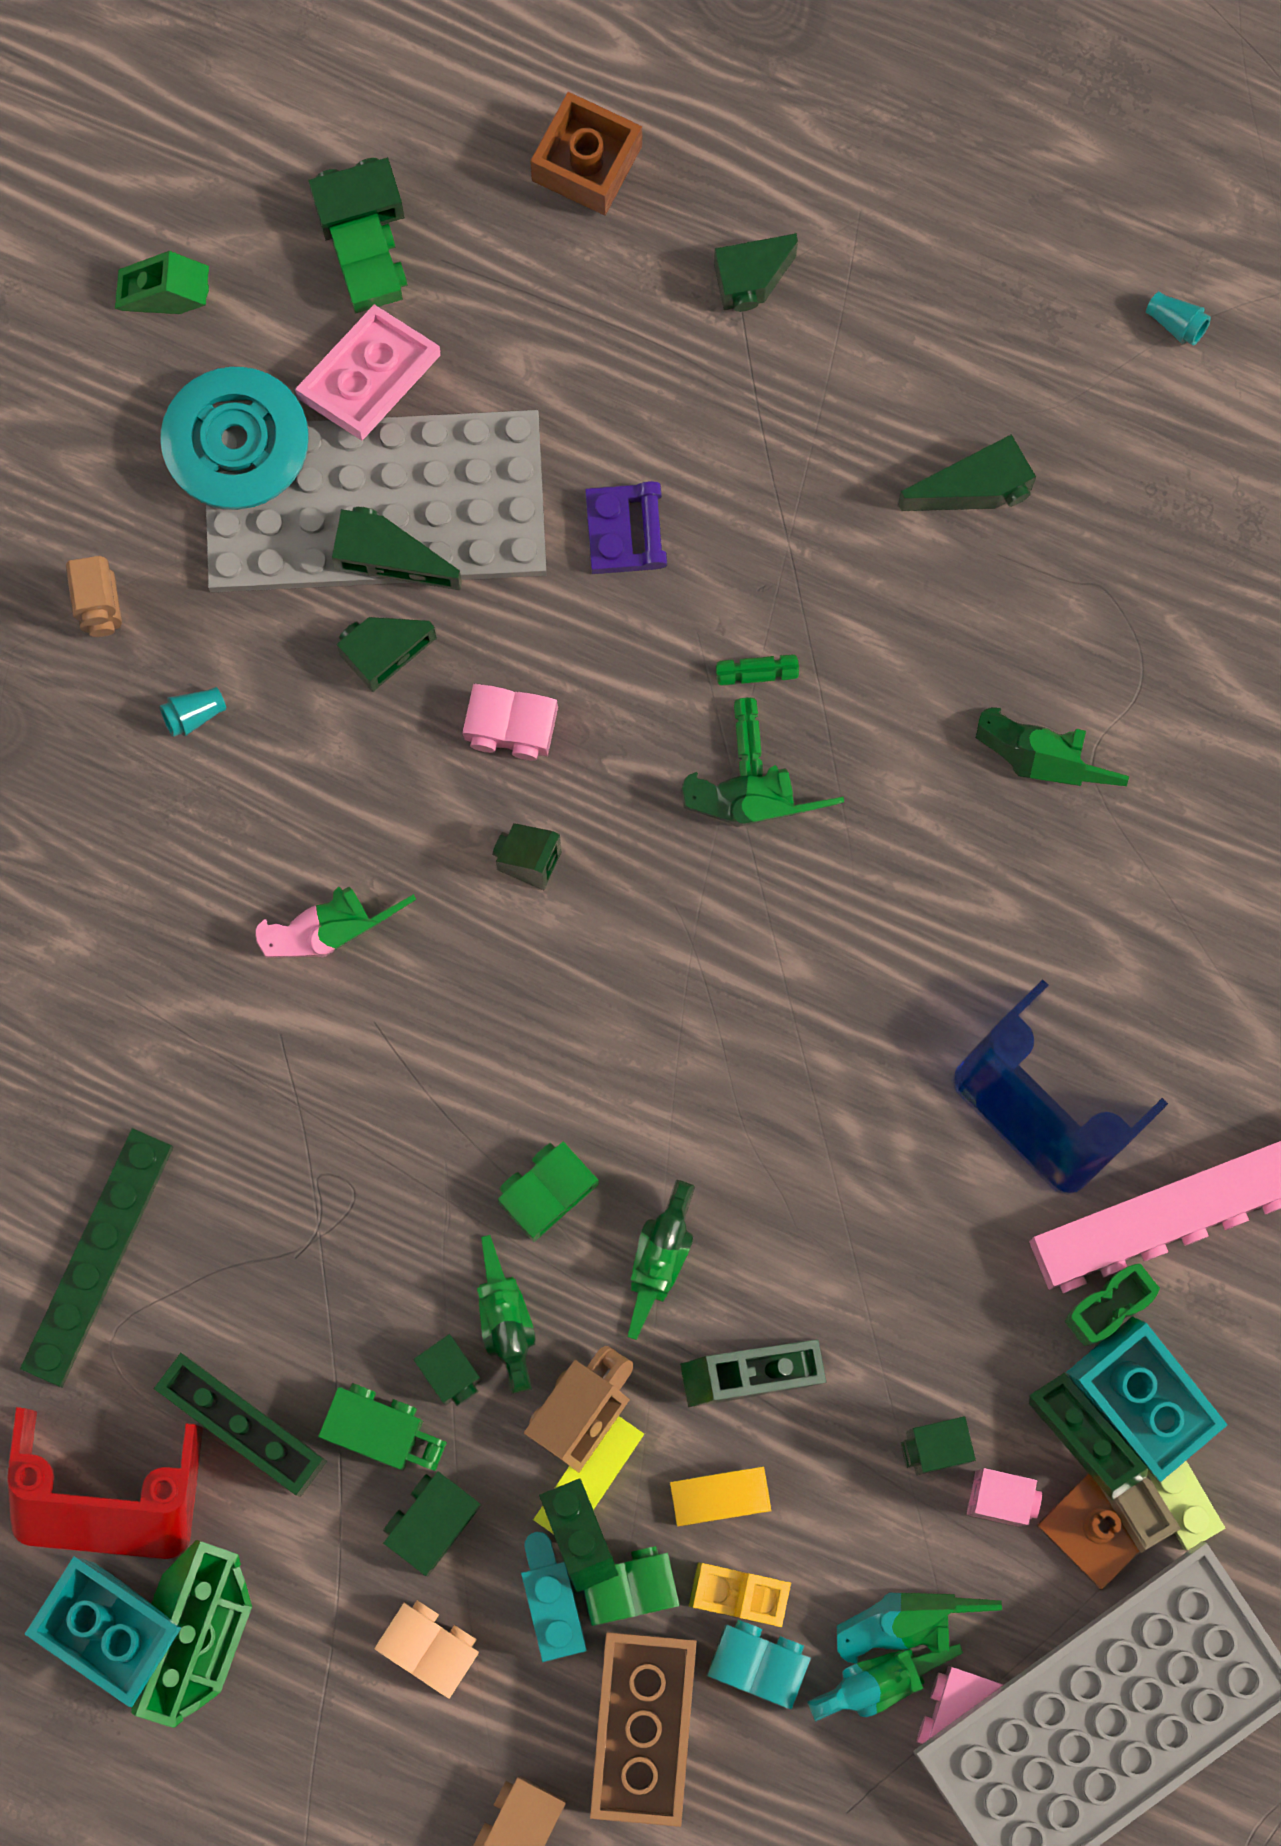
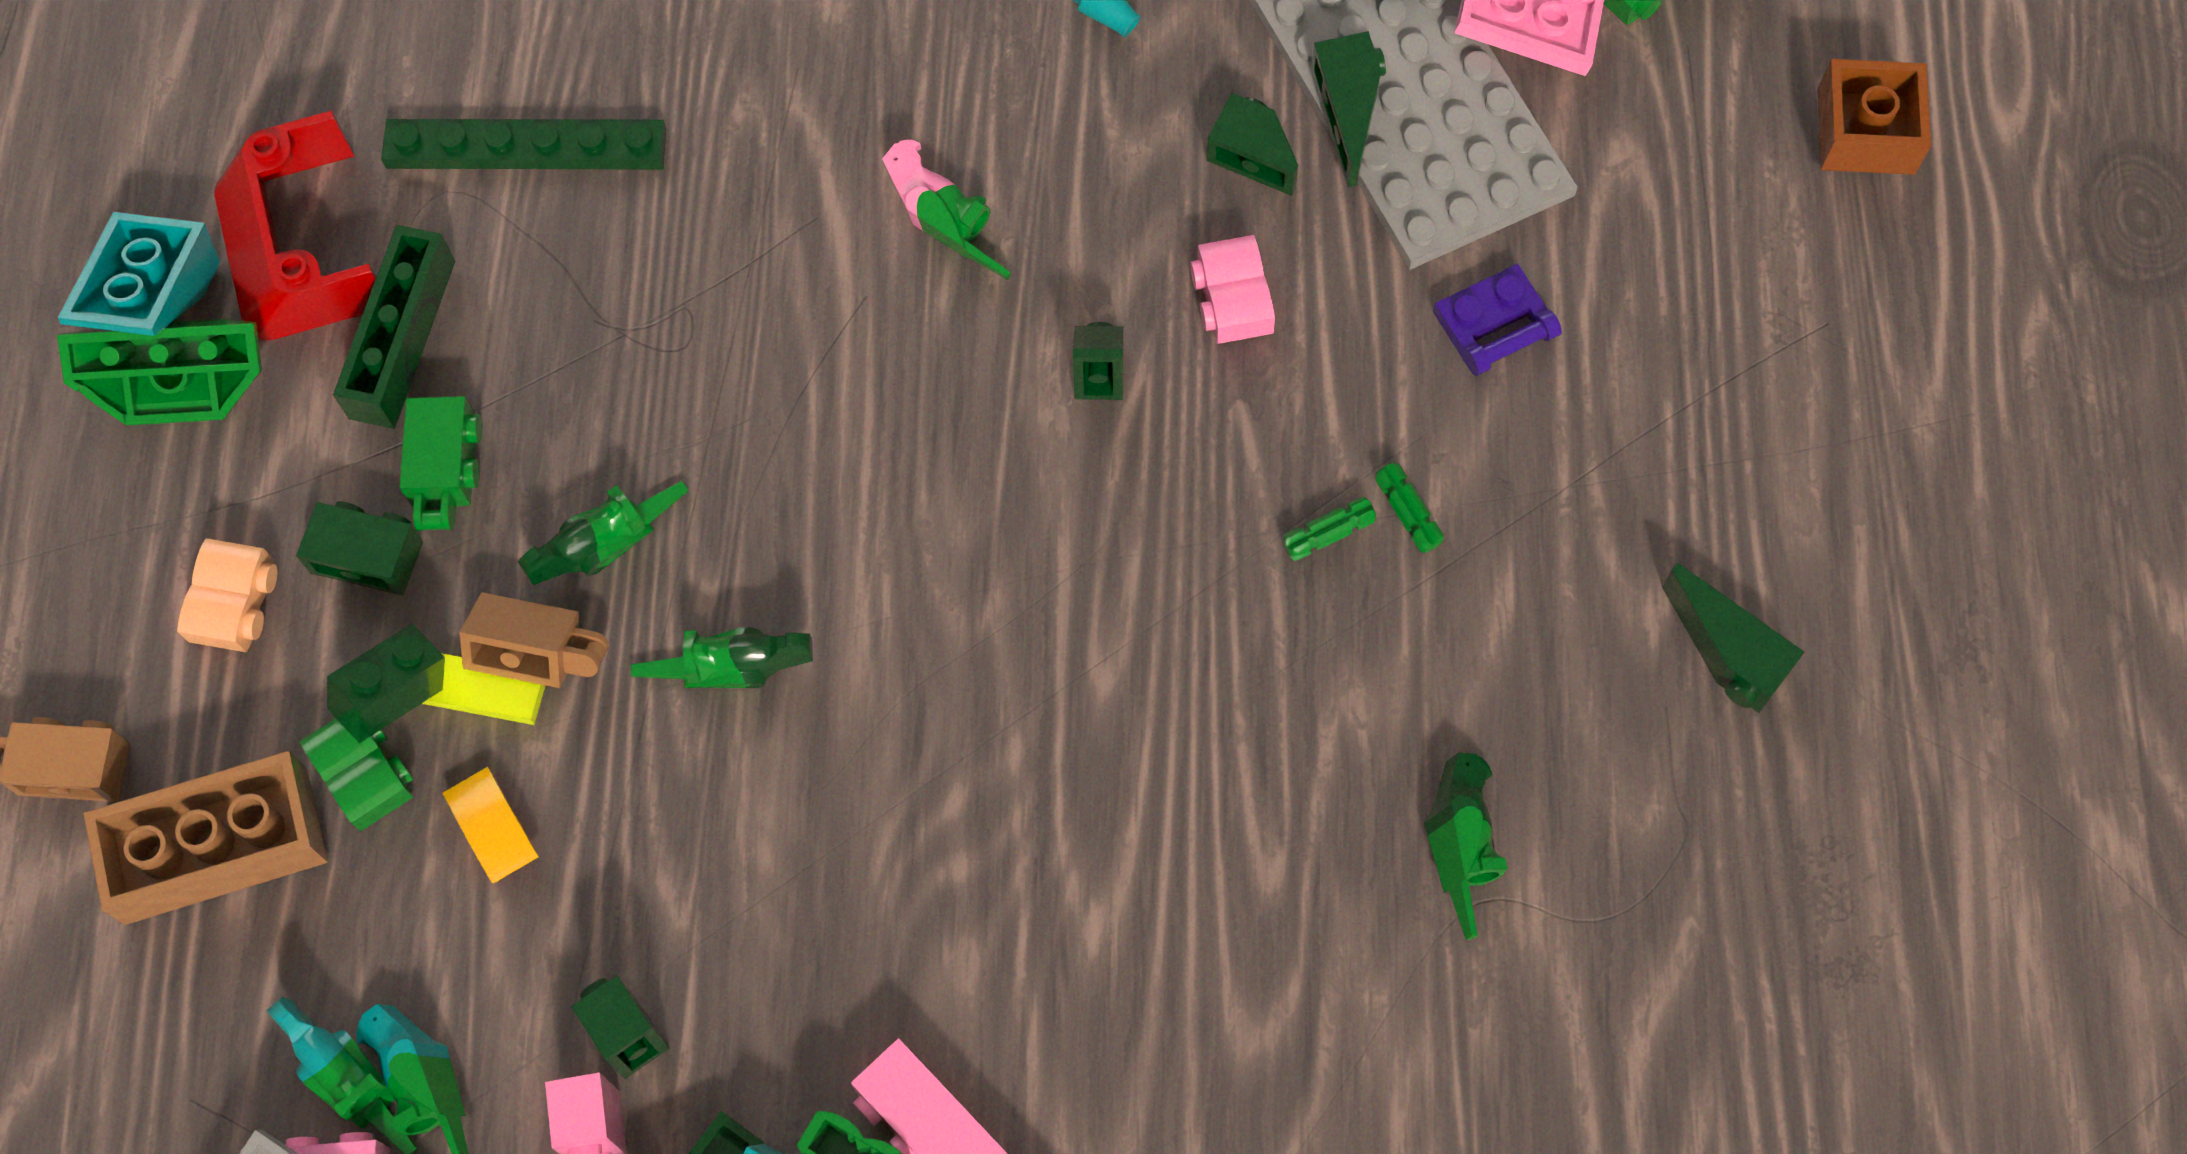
camera: 70 degrees right, 10 degrees down
(448, 1371) = (525, 500): dark green brick -> none
(547, 1190) = (752, 520): green brick -> none
(551, 1601) = (297, 699): teal brick -> none
(739, 1594) = (392, 888): yellow slope -> none
(747, 798) = (1262, 549): animal -> none
(752, 270) = (1843, 328): dark green slope -> none
(752, 1372) = (637, 805): slope -> none
(759, 1665) = (317, 935): teal brick -> none
(1029, 1117) = (1009, 1044): clear blue windscreen -> none
(1179, 318) = (2043, 792): teal cone -> none

